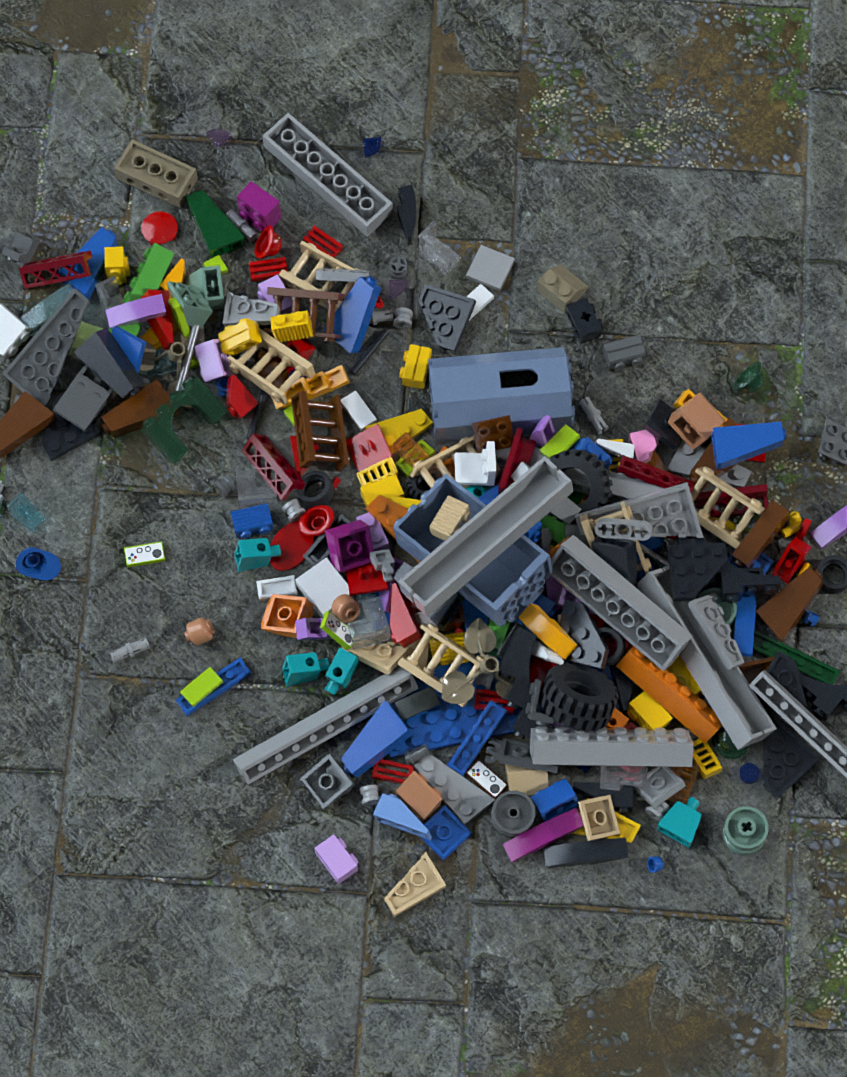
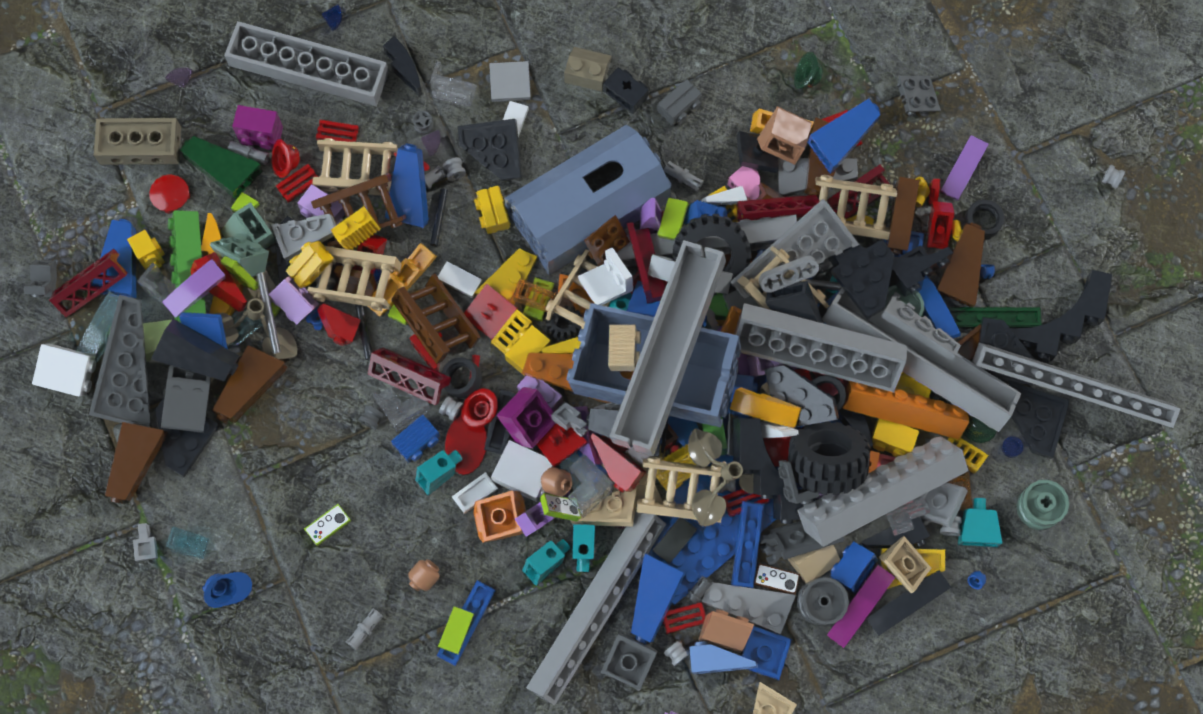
camera: 30 degrees left, 5 degrees up
(159, 427) = (276, 391): clear green arch -> none
(340, 274) = (374, 155): light grey beam -> none

